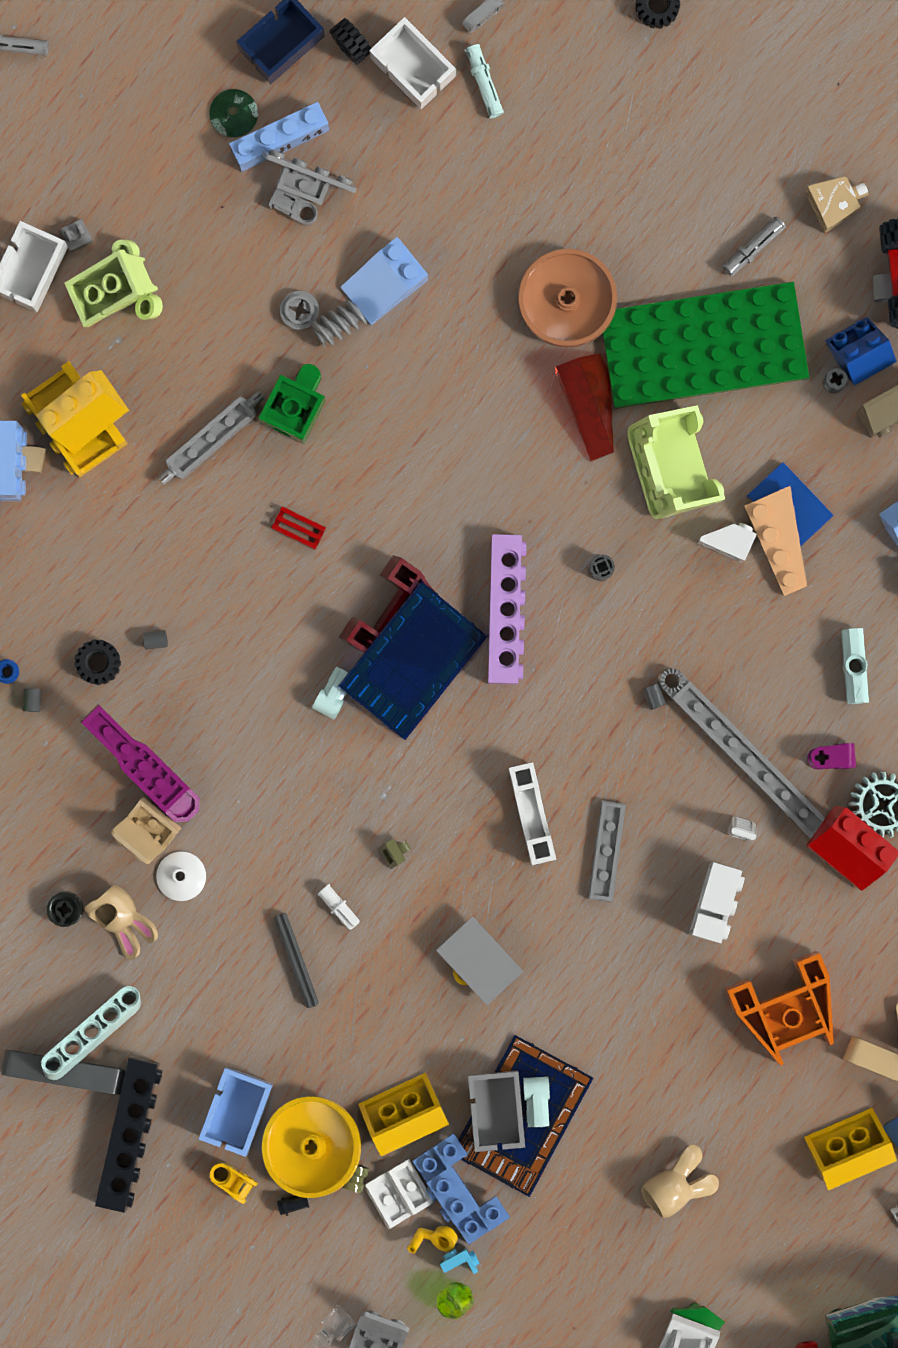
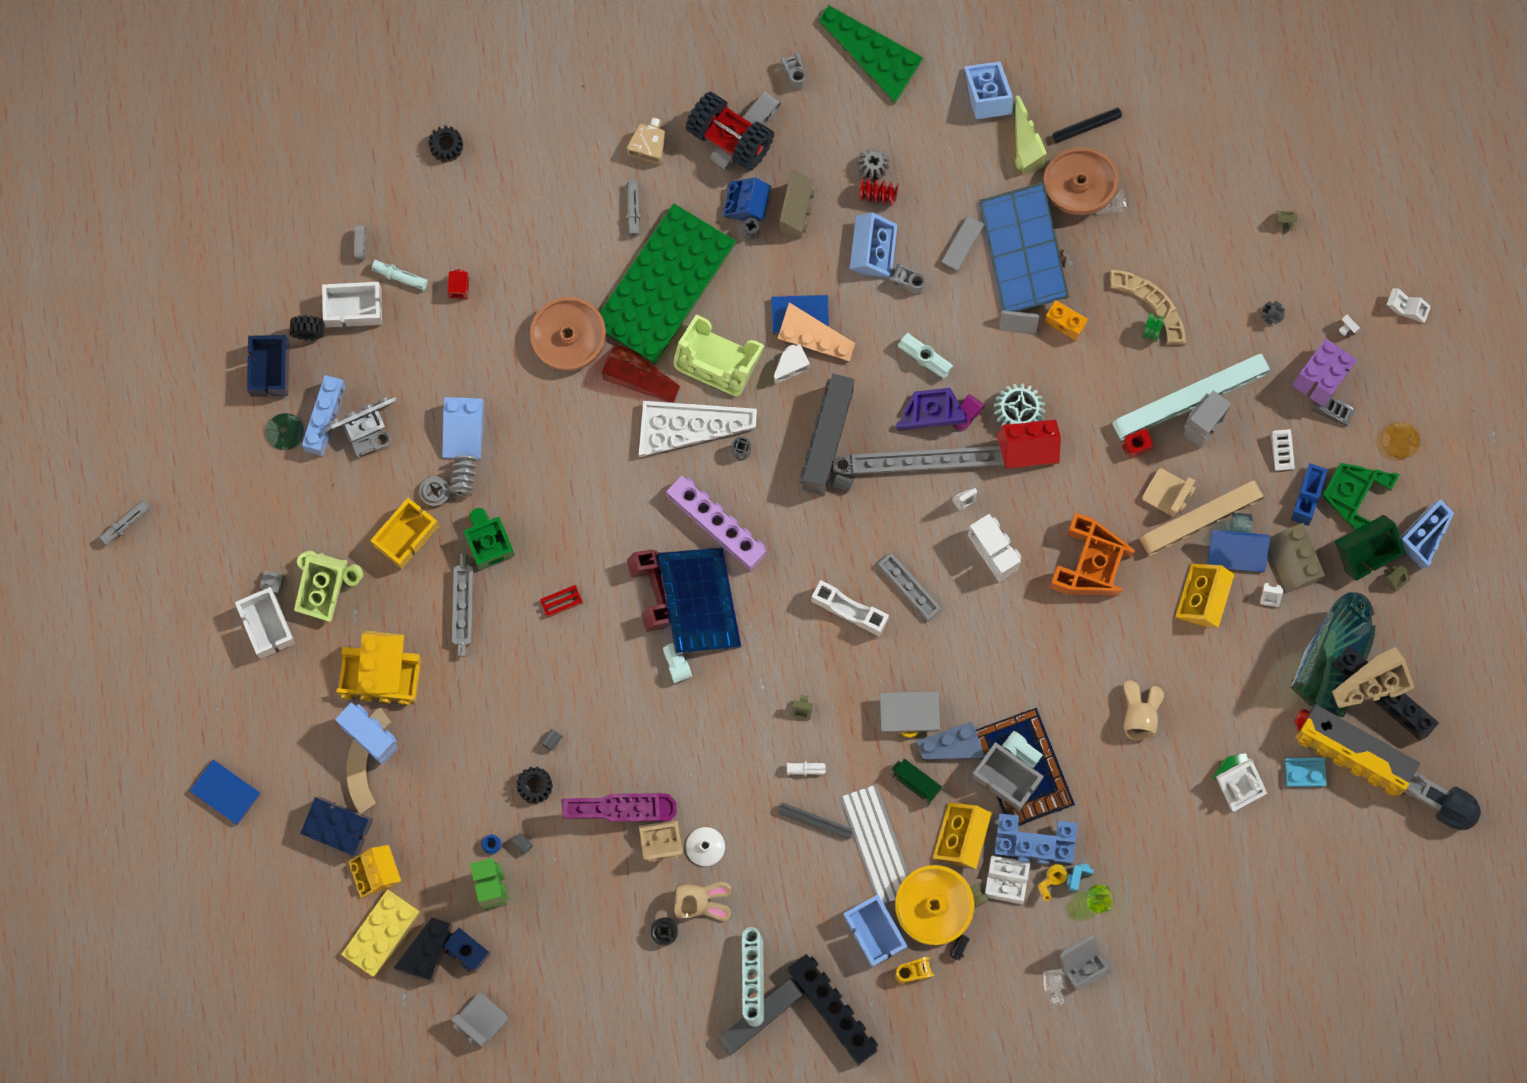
camera: 50 degrees left, 10 degrees down
(231, 320) = (404, 533): none -> yellow piece
(327, 1036) = (876, 841): none -> white sticker
(418, 1024) = (916, 780): none -> dark green window
(485, 1028) = (954, 743): none -> sand blue wing
(525, 146) = (458, 284): none -> red brick
(571, 486) = (679, 425): none -> white wing
(688, 641) = (827, 435): none -> dark grey brick
(804, 721) = (932, 409): none -> dark purple wing

